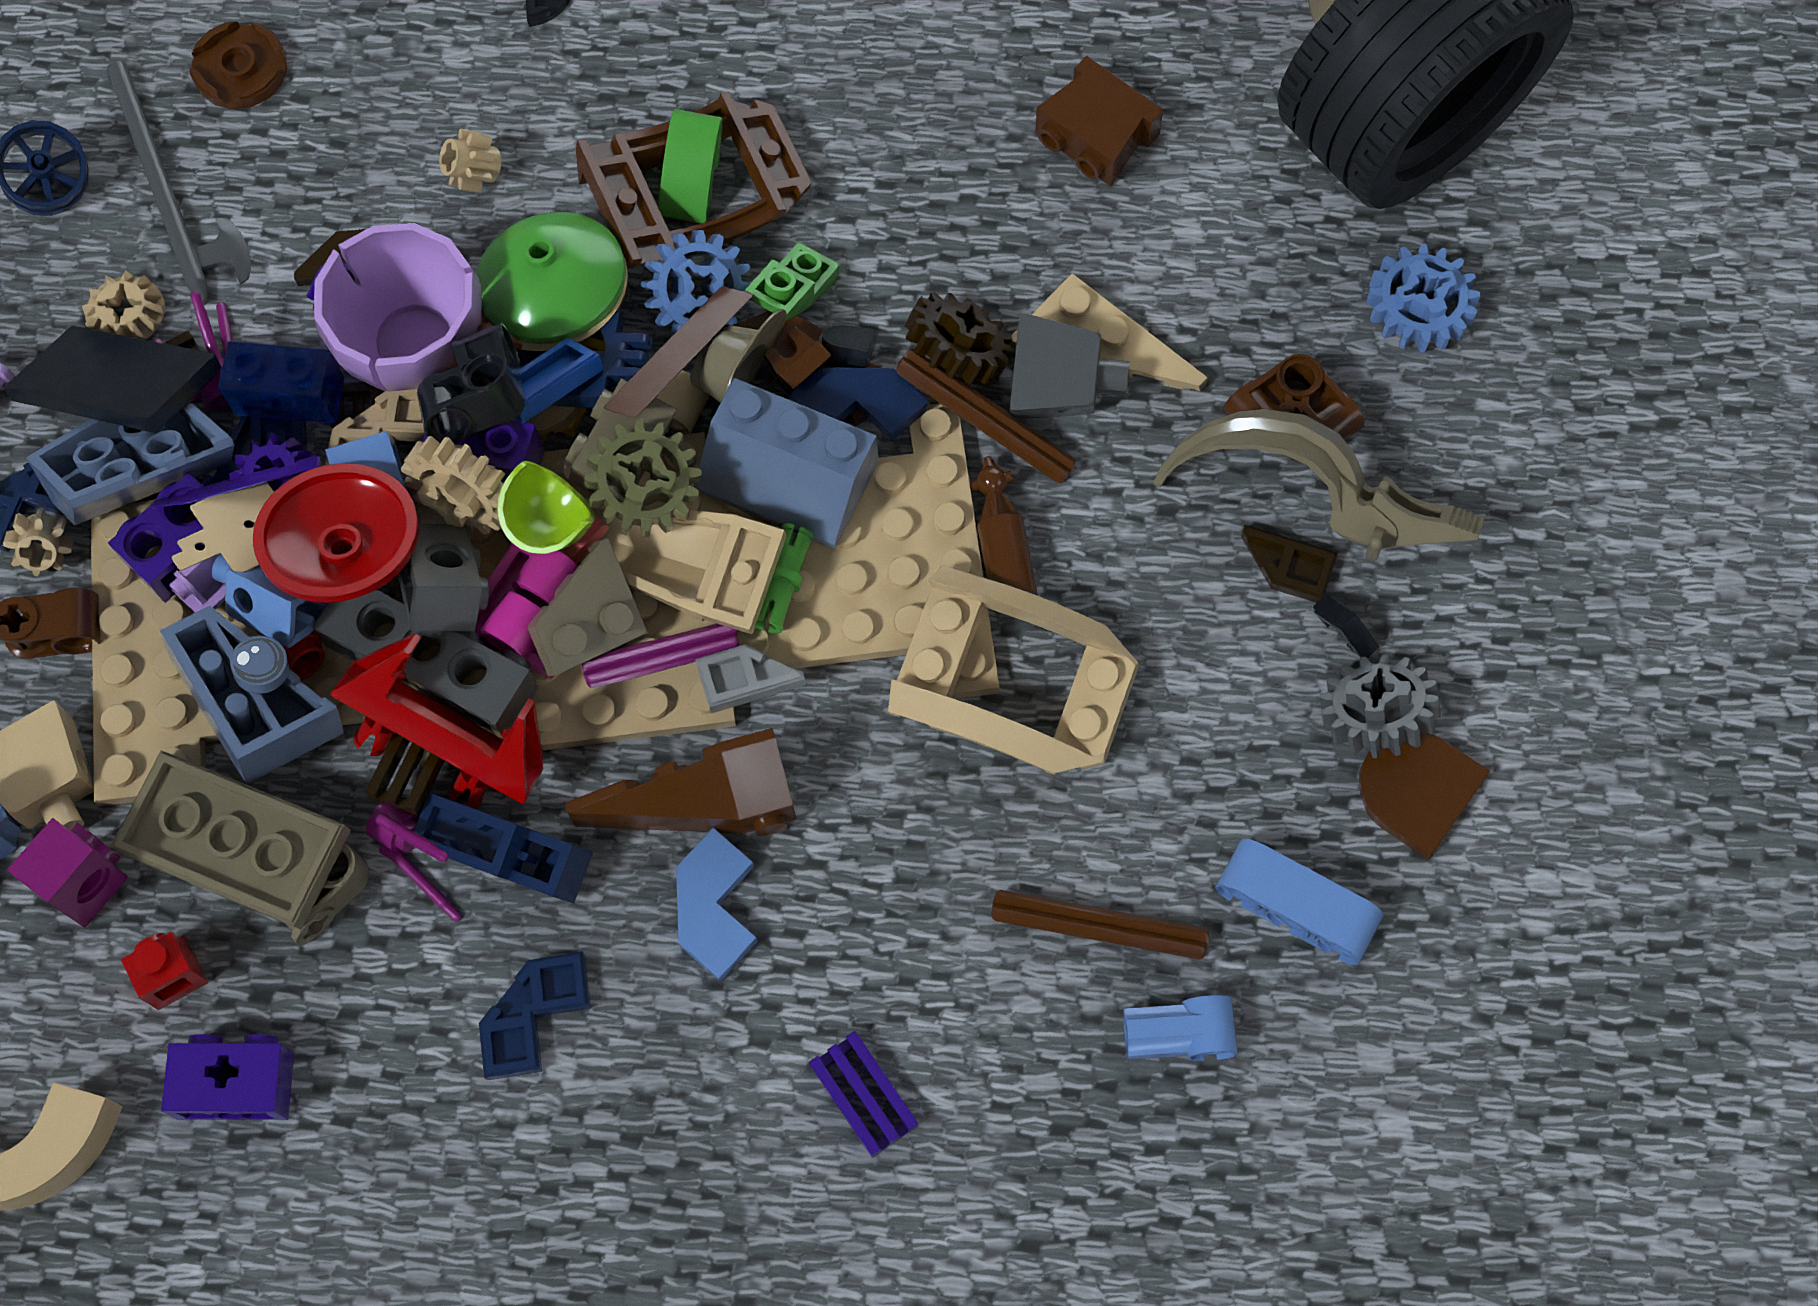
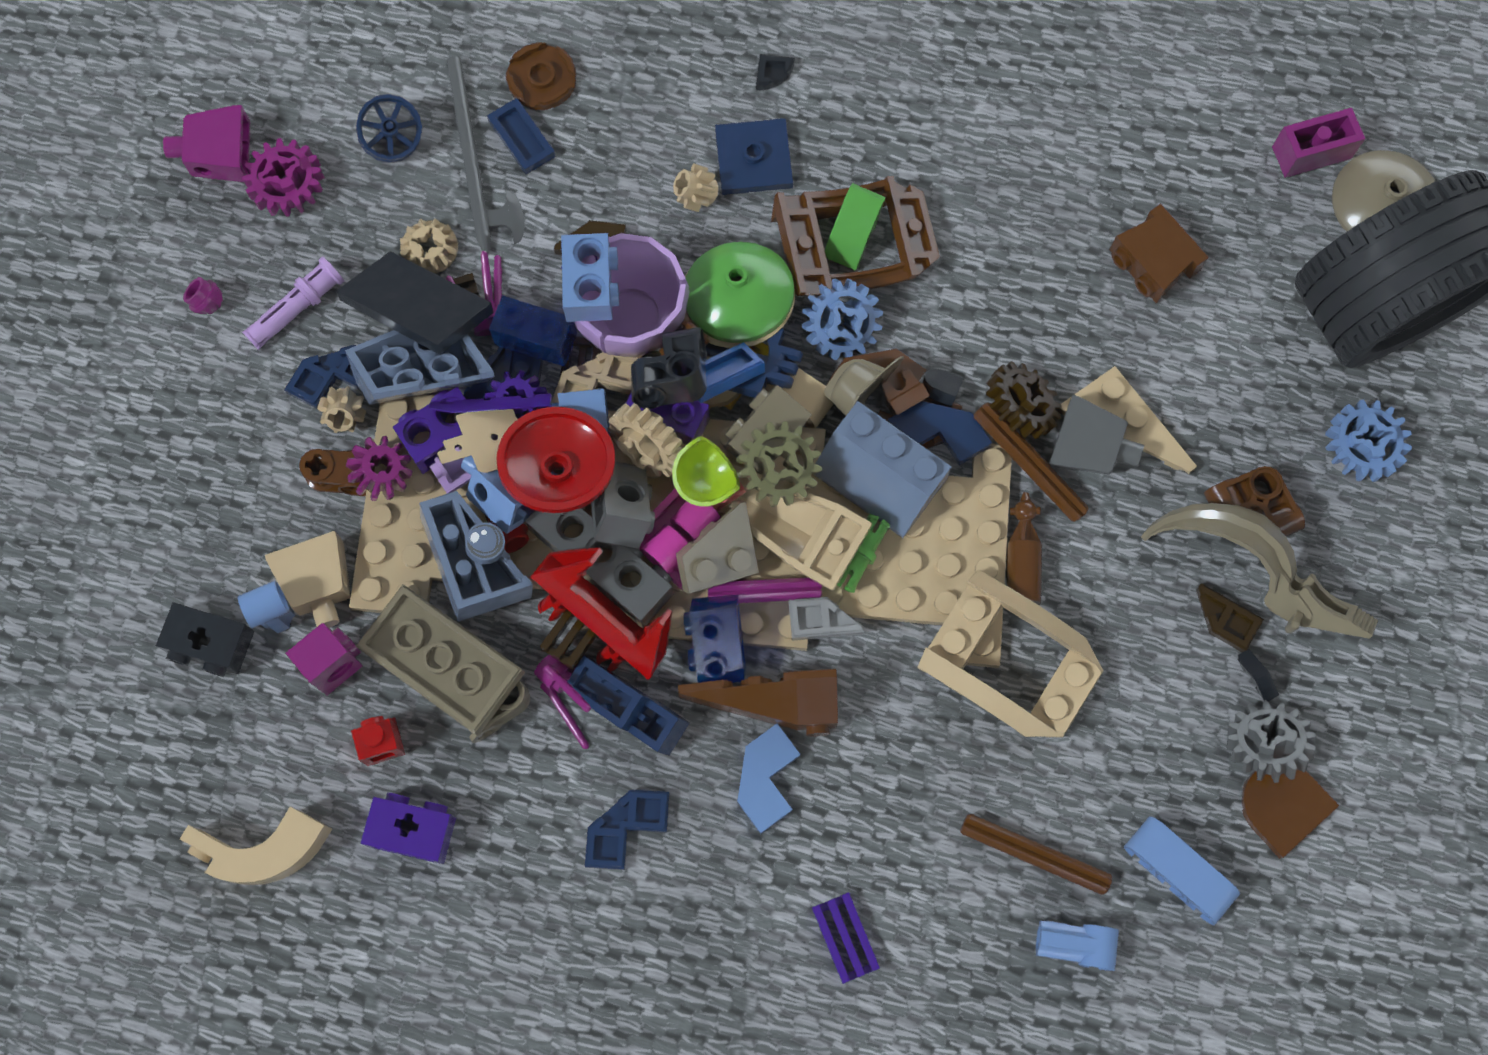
camera: 10 degrees right, 5 degrees up
(94, 587) = (373, 456): none -> magenta gear
(224, 145) = (521, 136): none -> dark blue tile
(328, 289) = (581, 277): none -> medium blue brick
(541, 108) = (753, 156): none -> dark blue plate
(605, 729) = (716, 639): none -> clear blue brick
(678, 352) = (821, 372): sticker -> none
(794, 281) = (912, 330): bright green slope -> none

